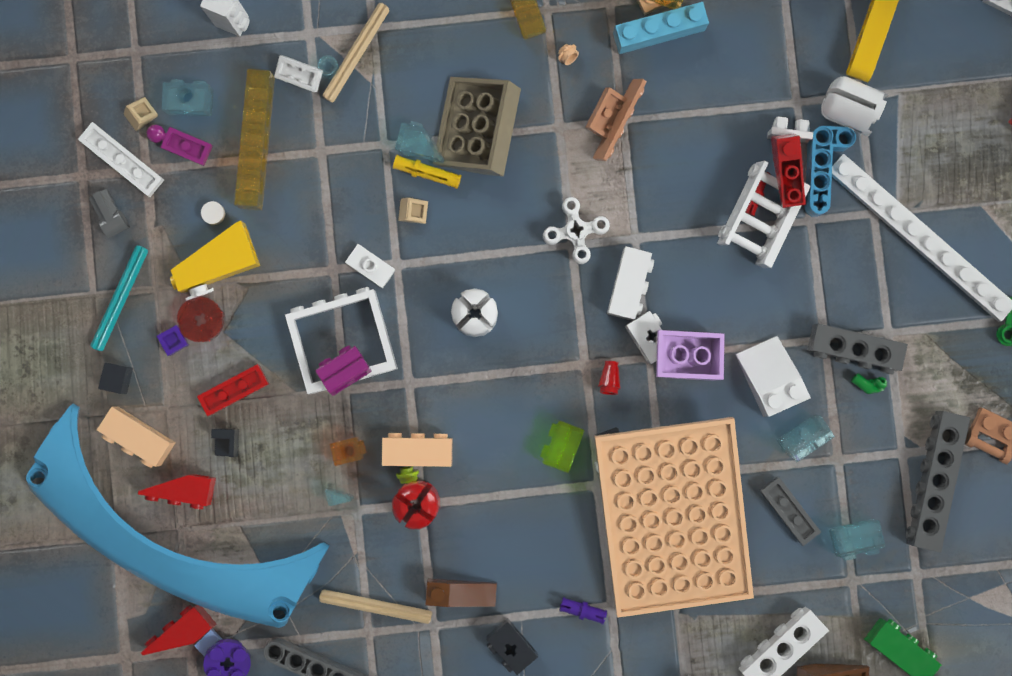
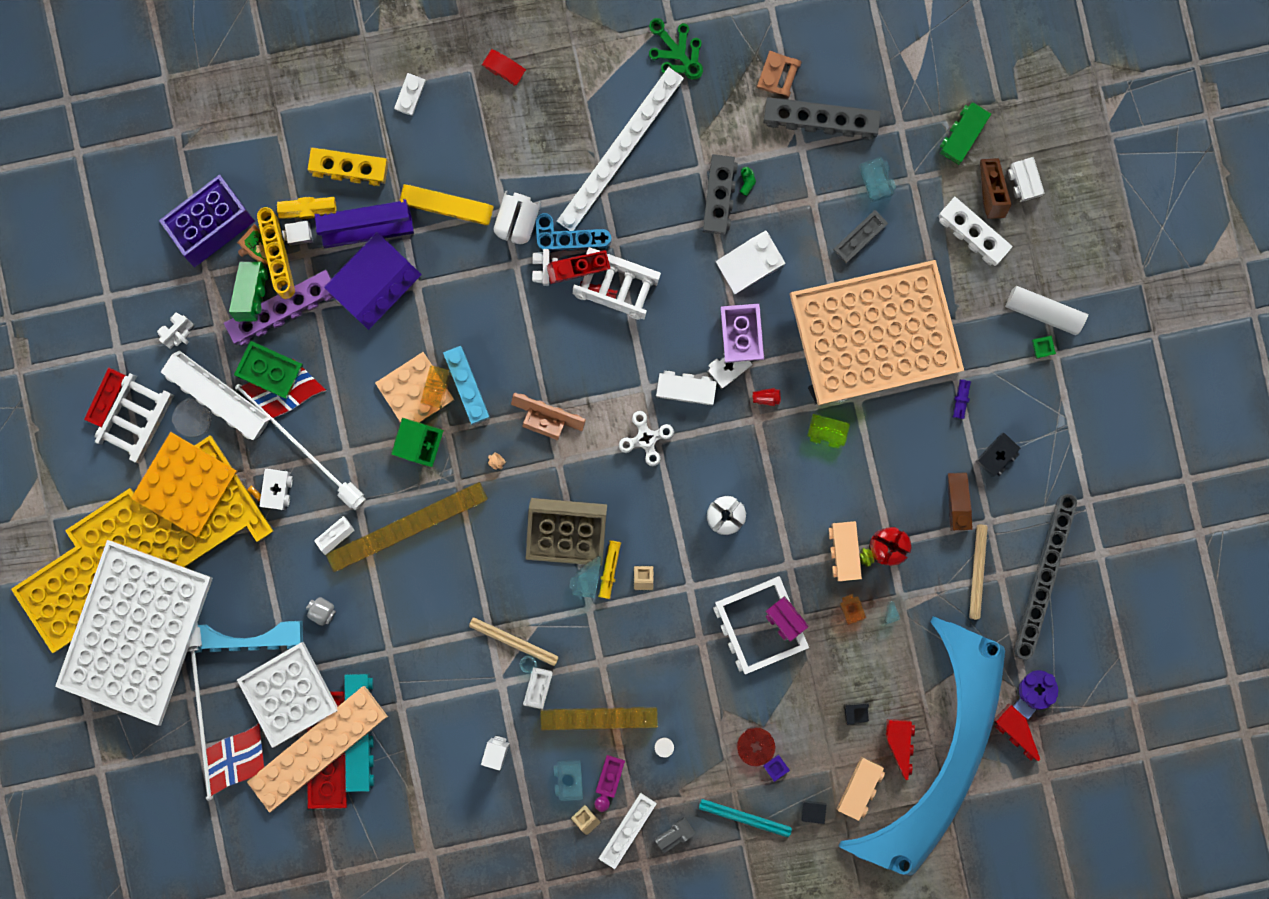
camera: 90 degrees left, 0 degrees up
(199, 291) = (733, 750): white plate -> none
(218, 259) = (703, 736): yellow slope -> none
(233, 390) = (812, 711): red plate -> none
(370, 266) = (694, 608): white plate -> none
(805, 438) = (799, 230): clear light blue window -> none

